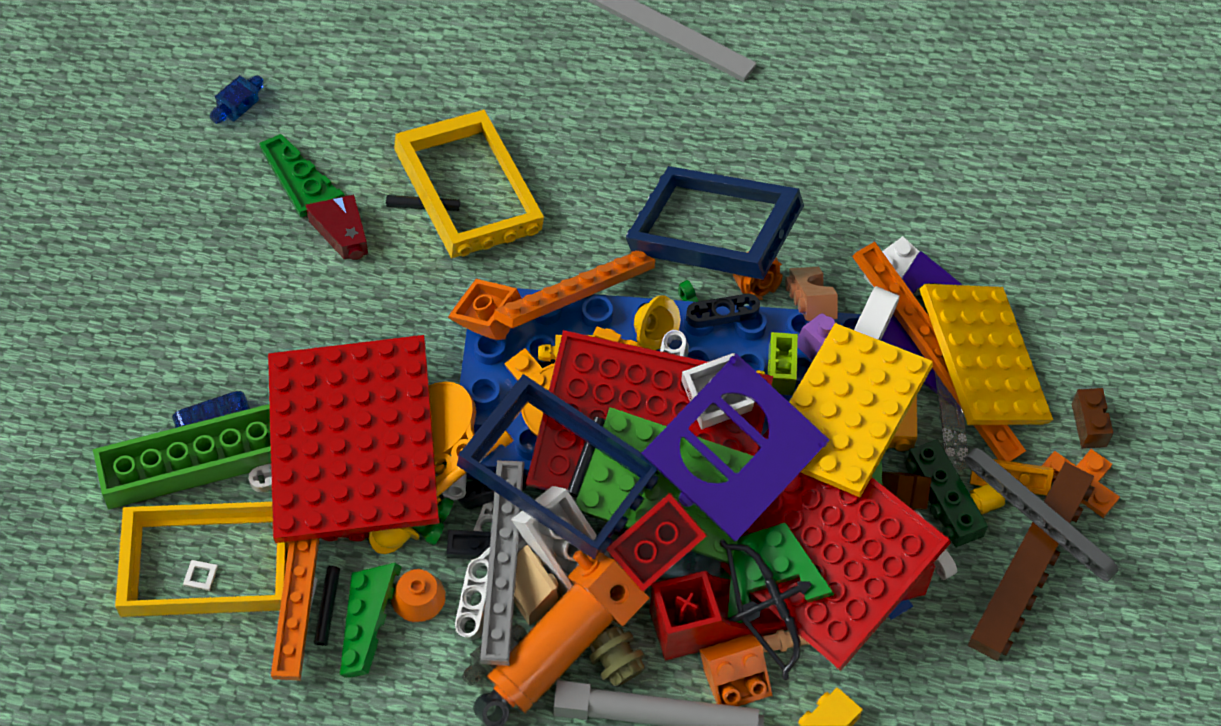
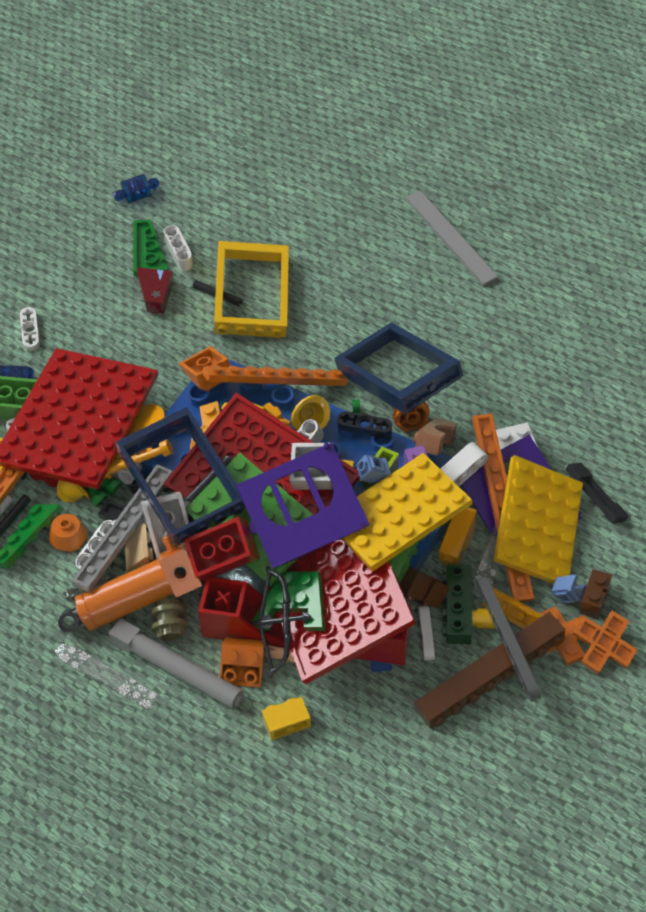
camera: 30 degrees right, 5 degrees down
(203, 329) = (26, 324): none -> white beam
(340, 160) = (178, 248): none -> white beam
(787, 366) = (372, 469): none -> medium blue window
(1051, 308) = (612, 510): none -> black container
(1060, 424) = (566, 591): none -> medium blue window
(1135, 472) = (604, 642): none -> orange plate

